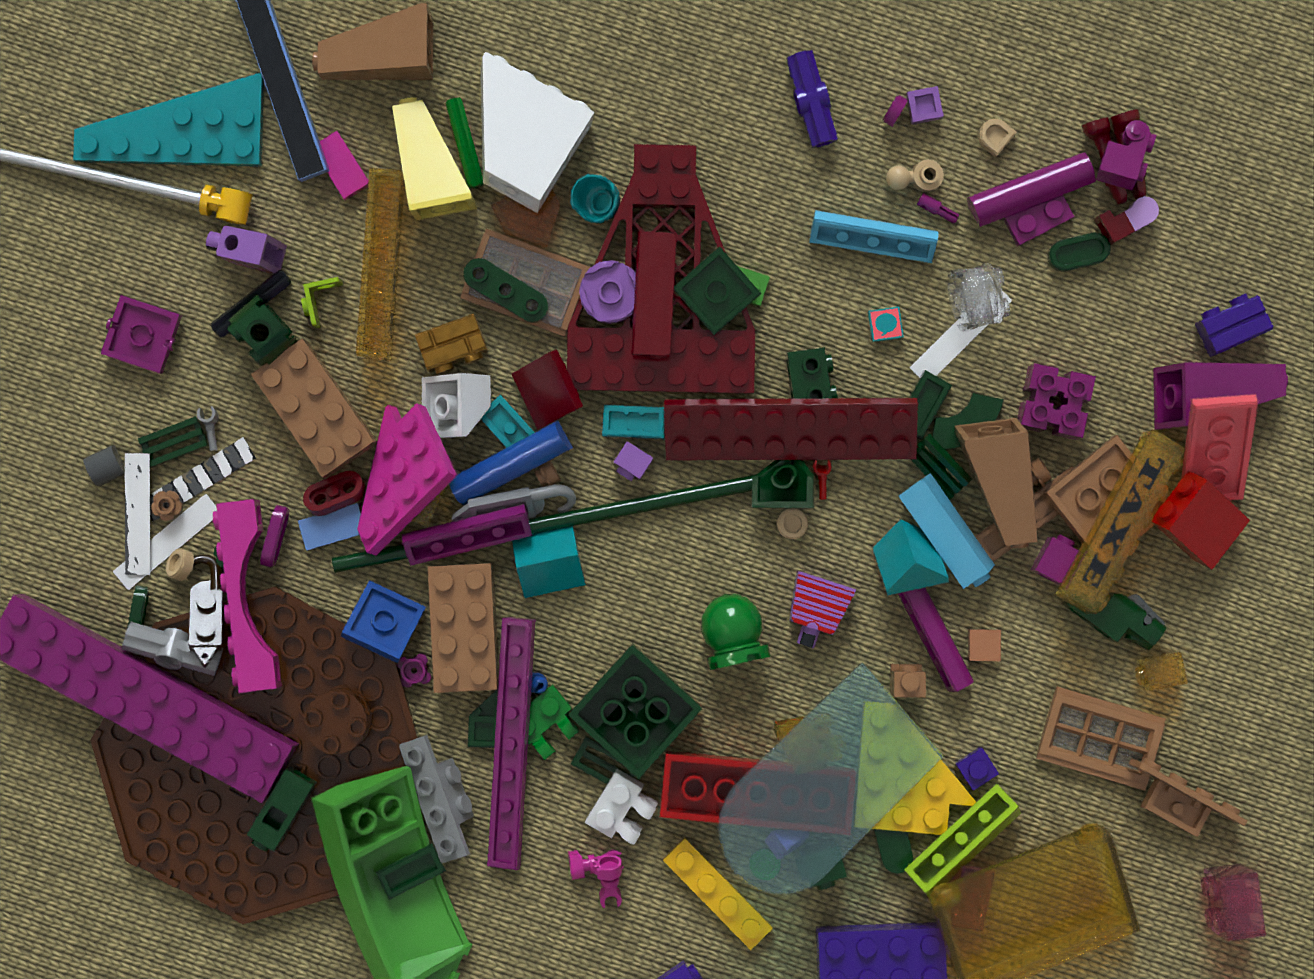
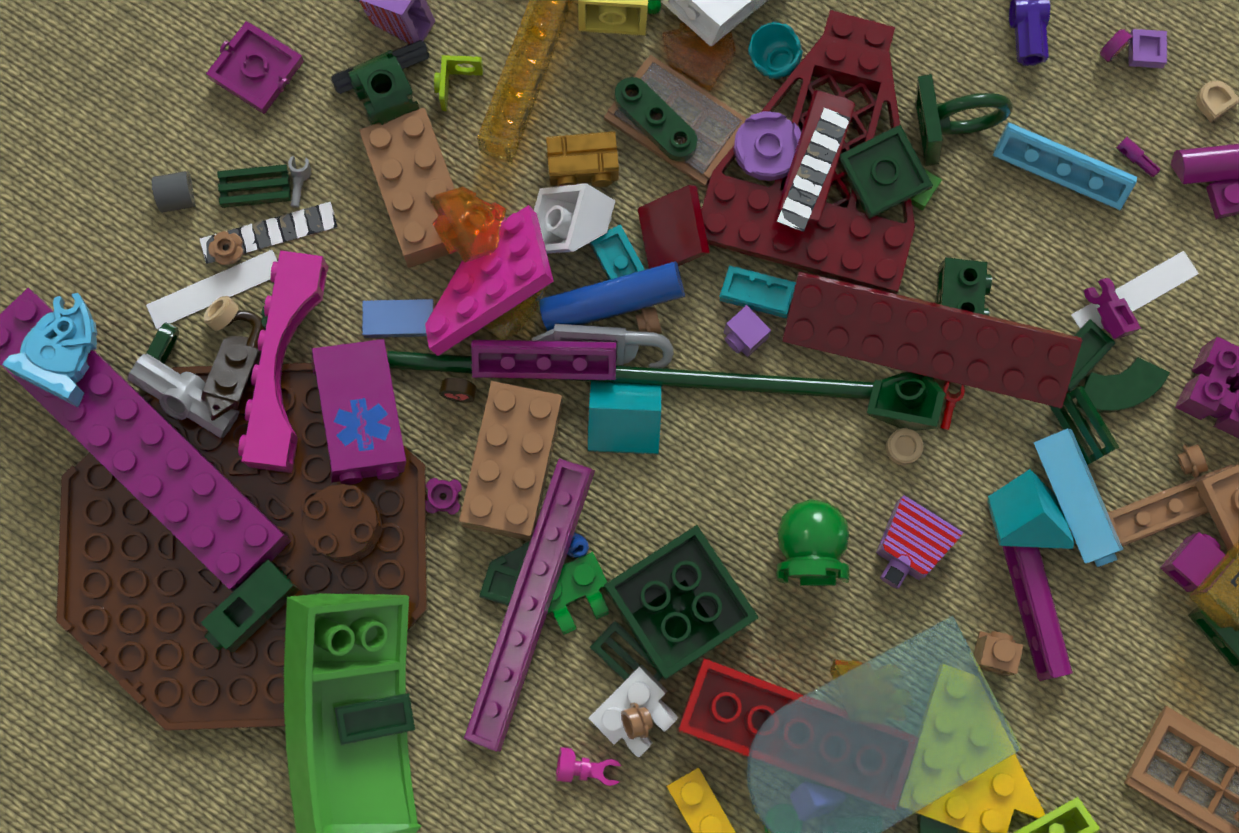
camera: 10 degrees right, 10 degrees down
(61, 649) = (57, 350): none -> medium azure piece
(137, 514) = (191, 250): white sticker -> none
(274, 536) = (332, 310): magenta tile -> none
(323, 622) = (359, 411): none -> magenta panel
(334, 491) = (411, 281): dark red plate -> none
(370, 437) = (467, 223): none -> clear orange plate
(383, 621) = (430, 430): blue plate -> none
(401, 577) = (458, 390): none -> dark brown tile
(440, 797) = (432, 643): light grey bracket -> none
(608, 870) = (602, 778): dark pink piece -> none
(624, 818) = (636, 721): none -> medium nougat plate
(654, 308) = (813, 169): none -> sticker
(752, 227) = (935, 120): none -> dark green tile
(885, 324) = (1056, 261): tile -> none
(899, 177) = (1105, 113): tan plate -> none
(945, 360) = (1114, 312): none -> magenta plate
(976, 768) = (1053, 777): dark purple plate -> none
(977, 296) = (1167, 252): clear brick -> none
(984, 645) = (1091, 637): nougat tile -> none
(1002, 468) = (1158, 452): medium nougat slope -> none

